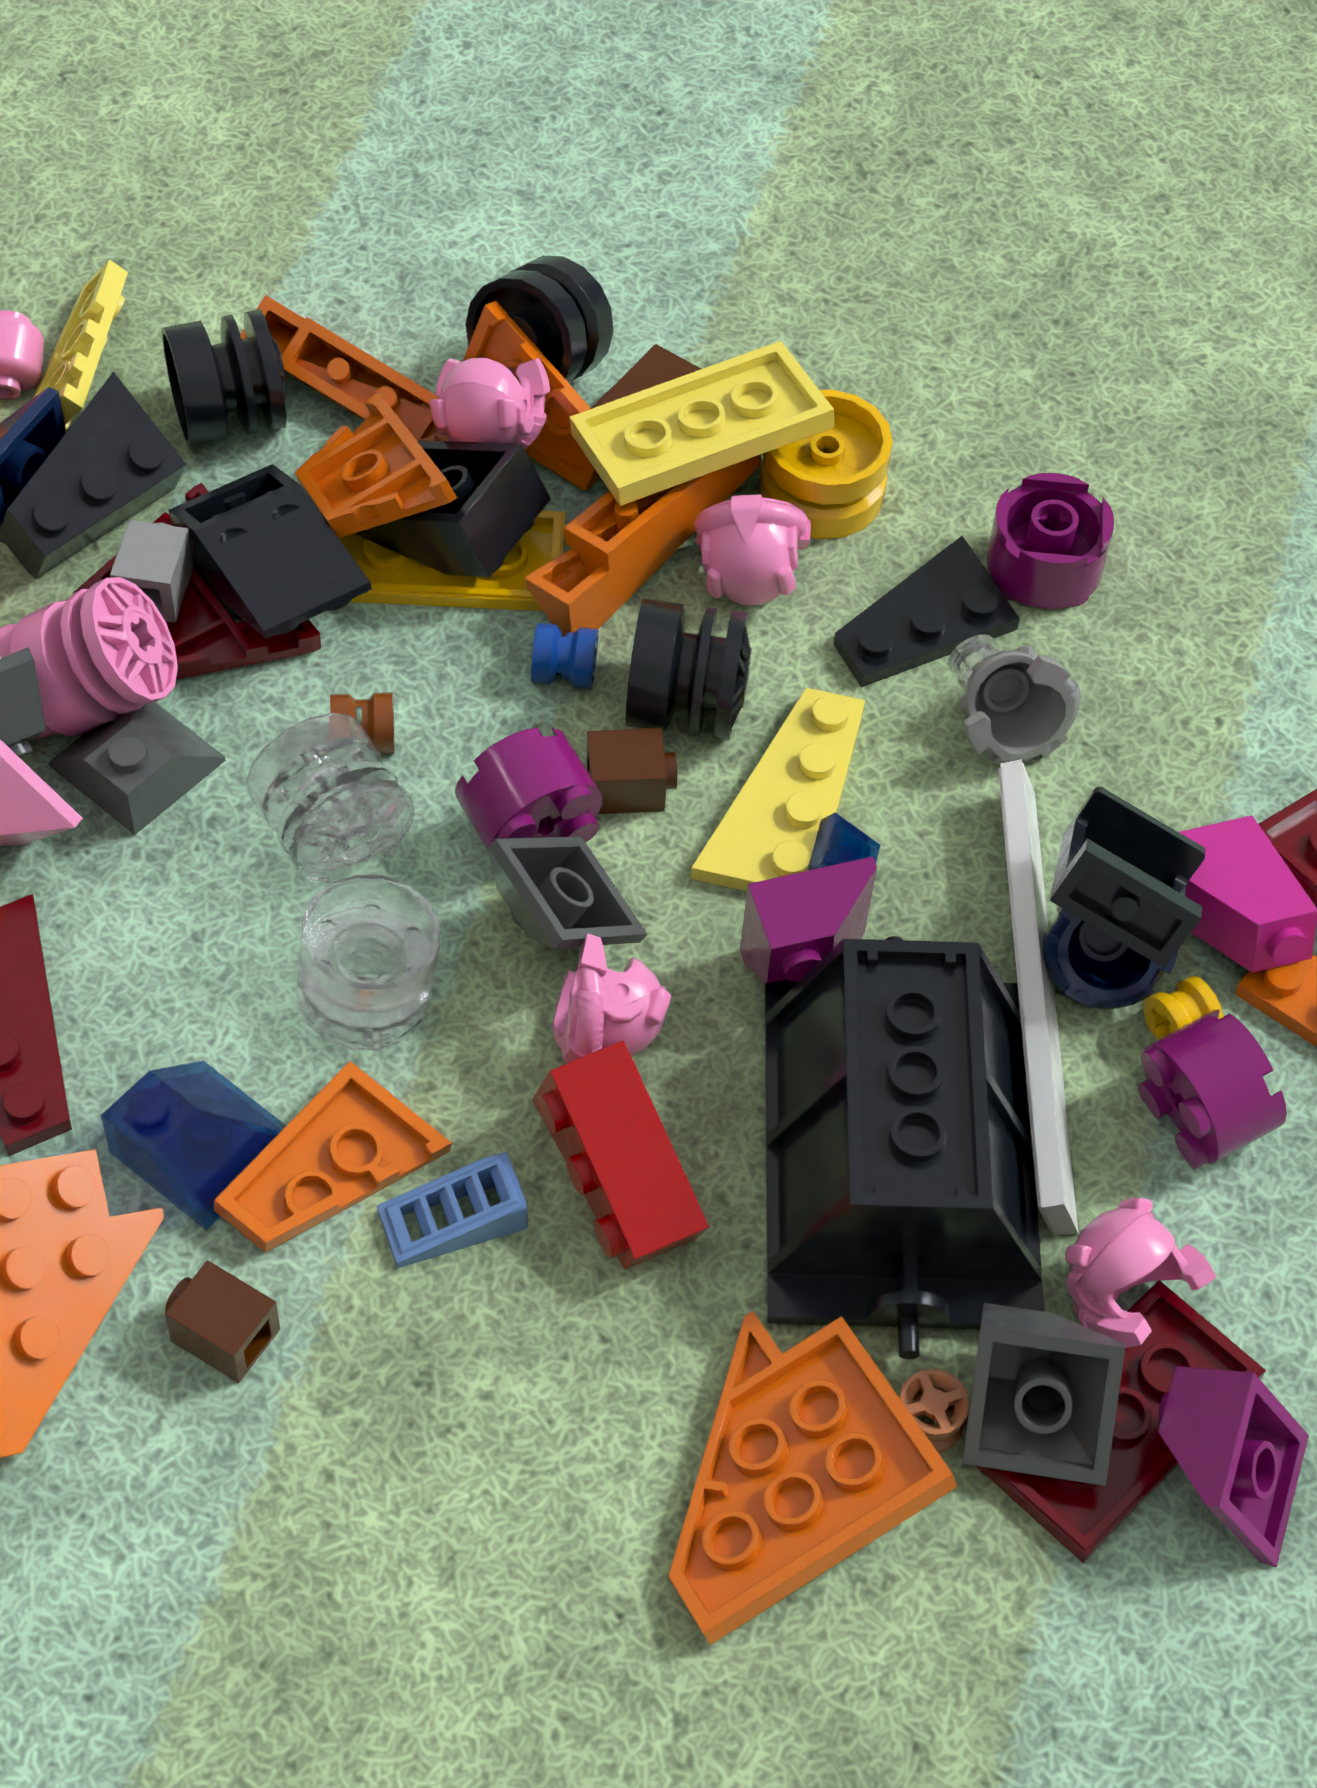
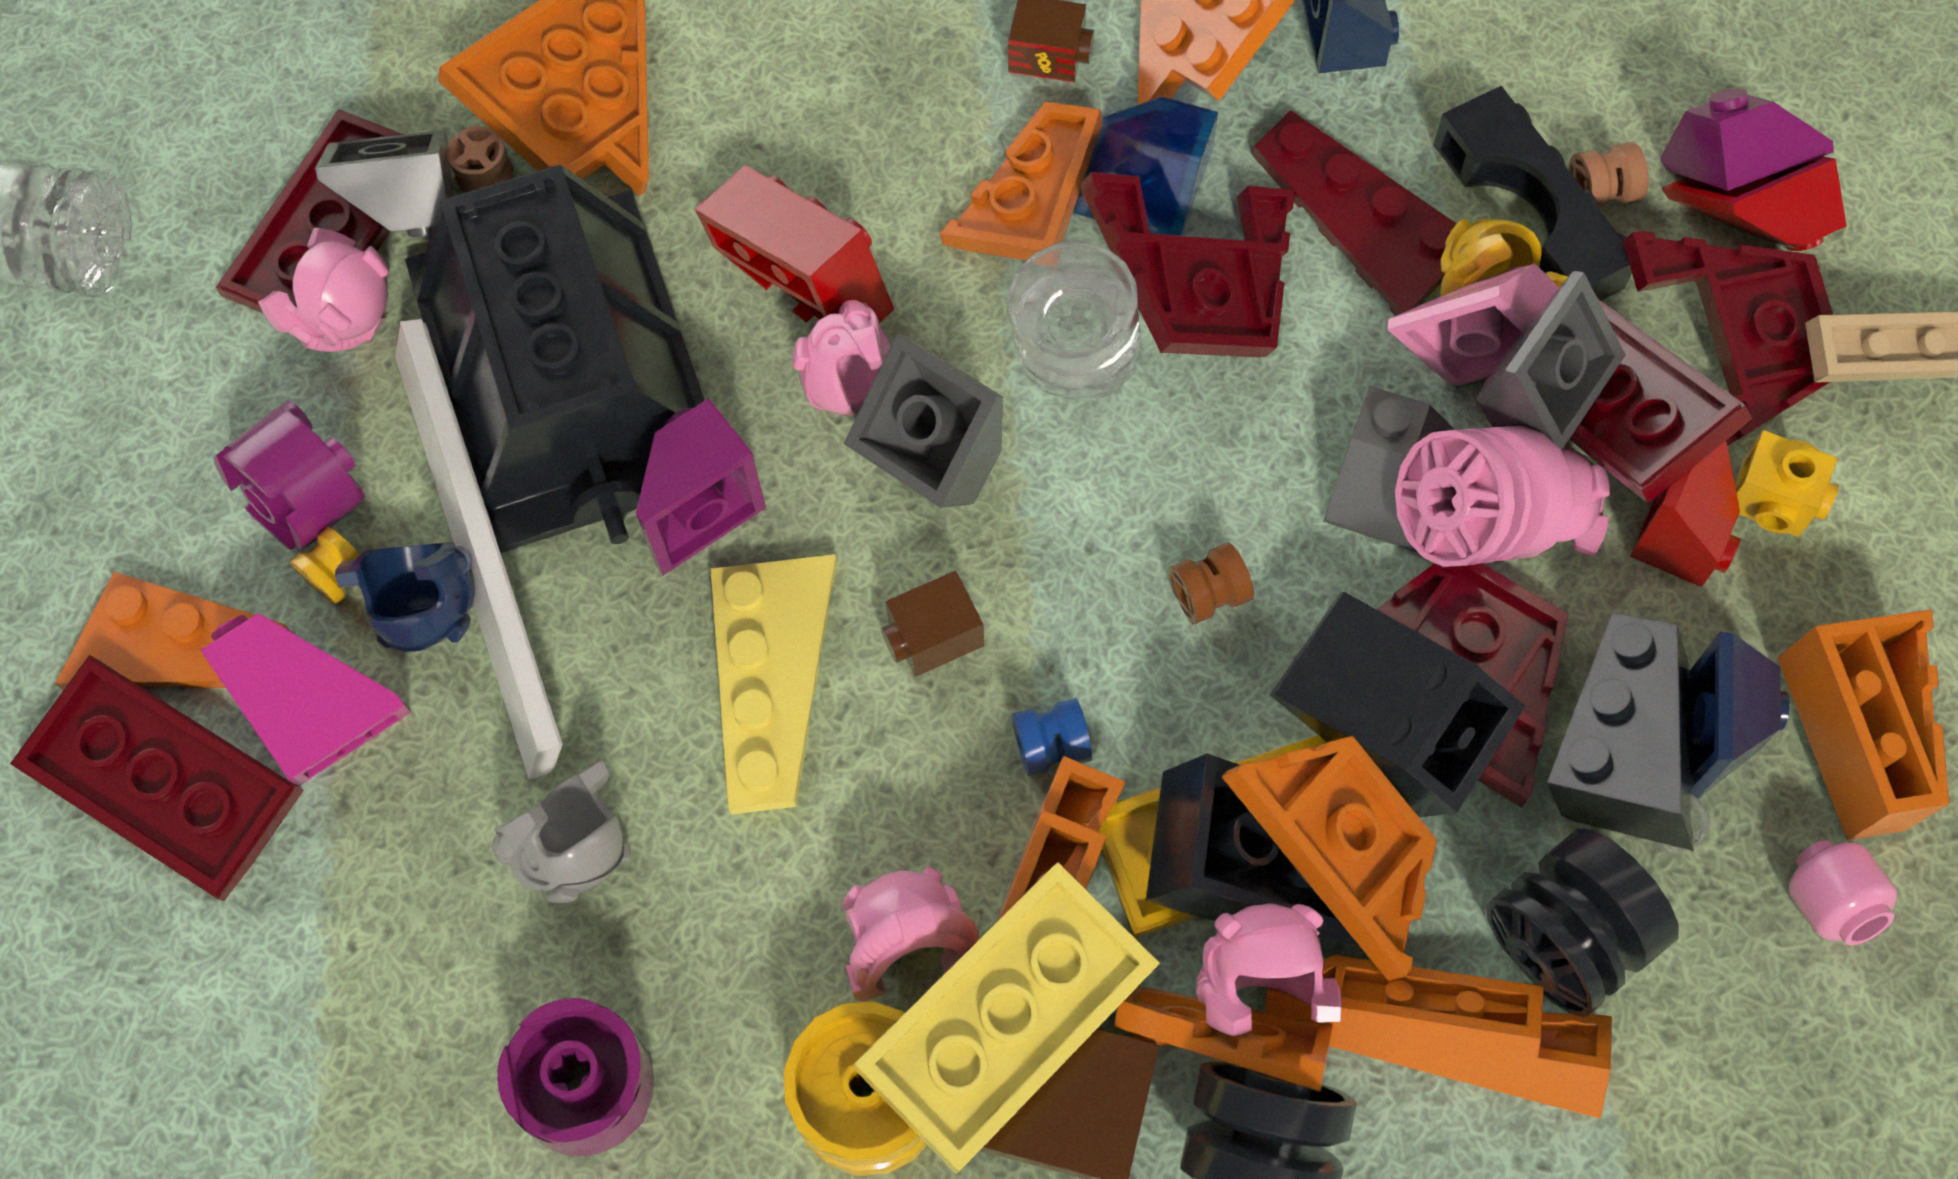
camera: 165 degrees right, 10 degrees up
(83, 339) = (1766, 911): light yellow wing -> none
(158, 562) = (1500, 633): light grey brick -> none
(203, 964) = (1200, 290): none -> dark red wing
(329, 797) = (1179, 455): clear wheel -> none
(484, 1225) = (898, 219): medium blue slope -> none
(530, 790) = (1005, 533): magenta brick -> none
(686, 669) = (913, 731): black wheel -> none
(840, 843) = (694, 616): clear blue tile -> none
(925, 617) = (692, 955): black wing -> none
(968, 655) = (621, 896): clear bush -> none
(1128, 876) = (393, 581): black panel -> none
(1236, 1451) = (232, 185): magenta slope -> none

